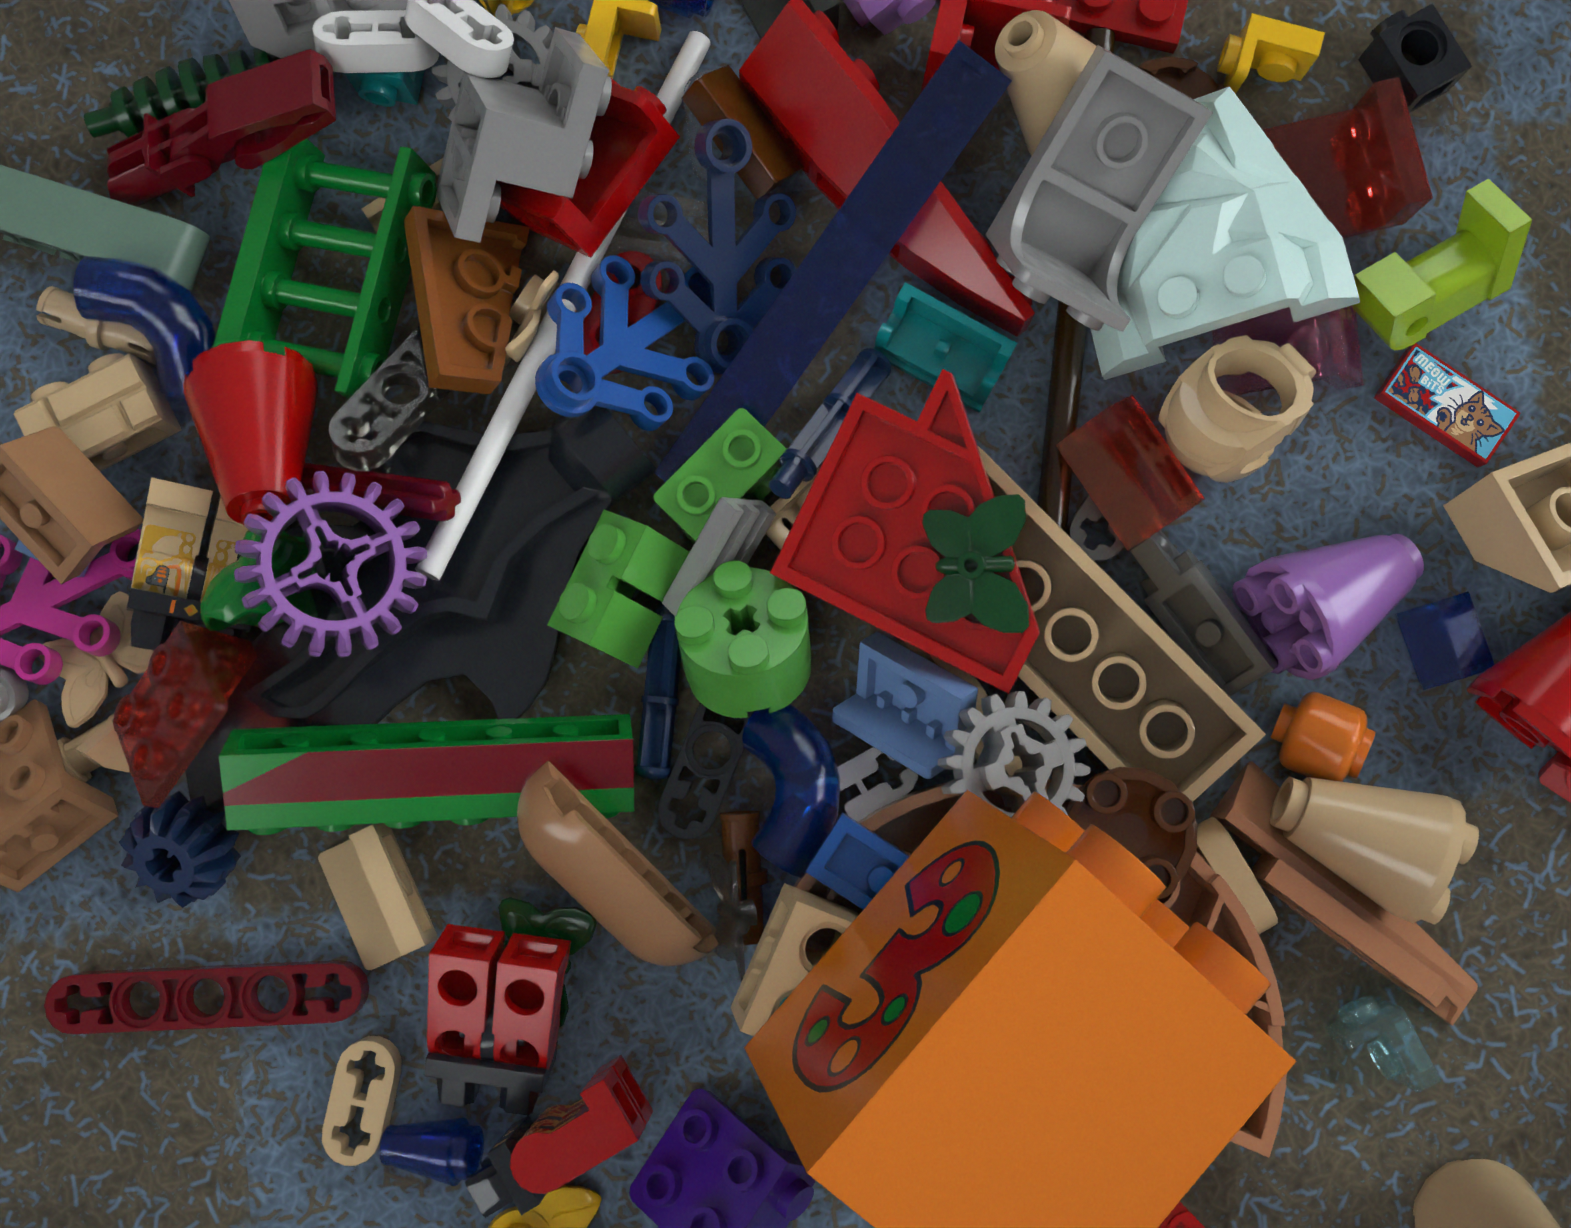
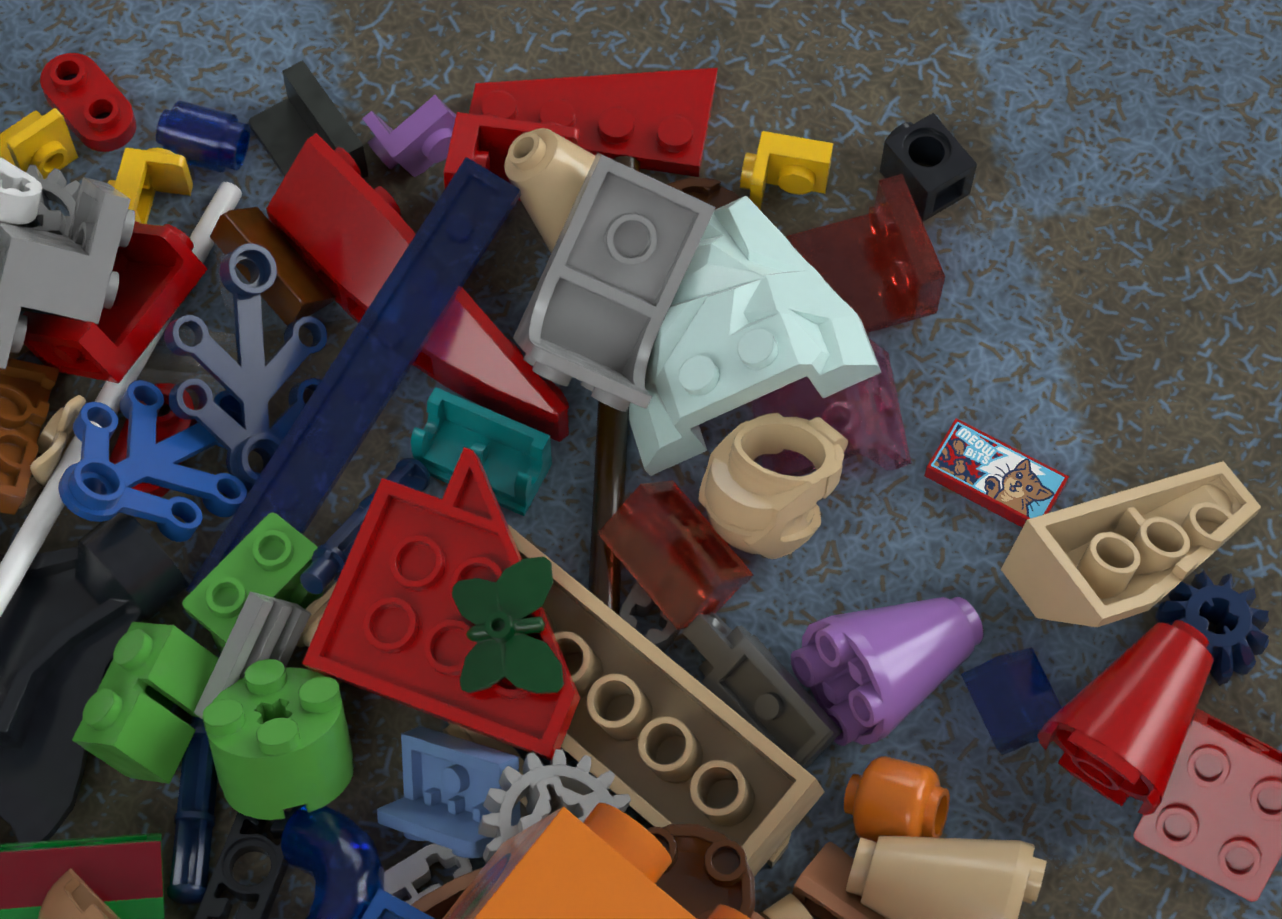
camera: 10 degrees left, 20 degrees down
(1475, 264) = (974, 355): lime piece -> none

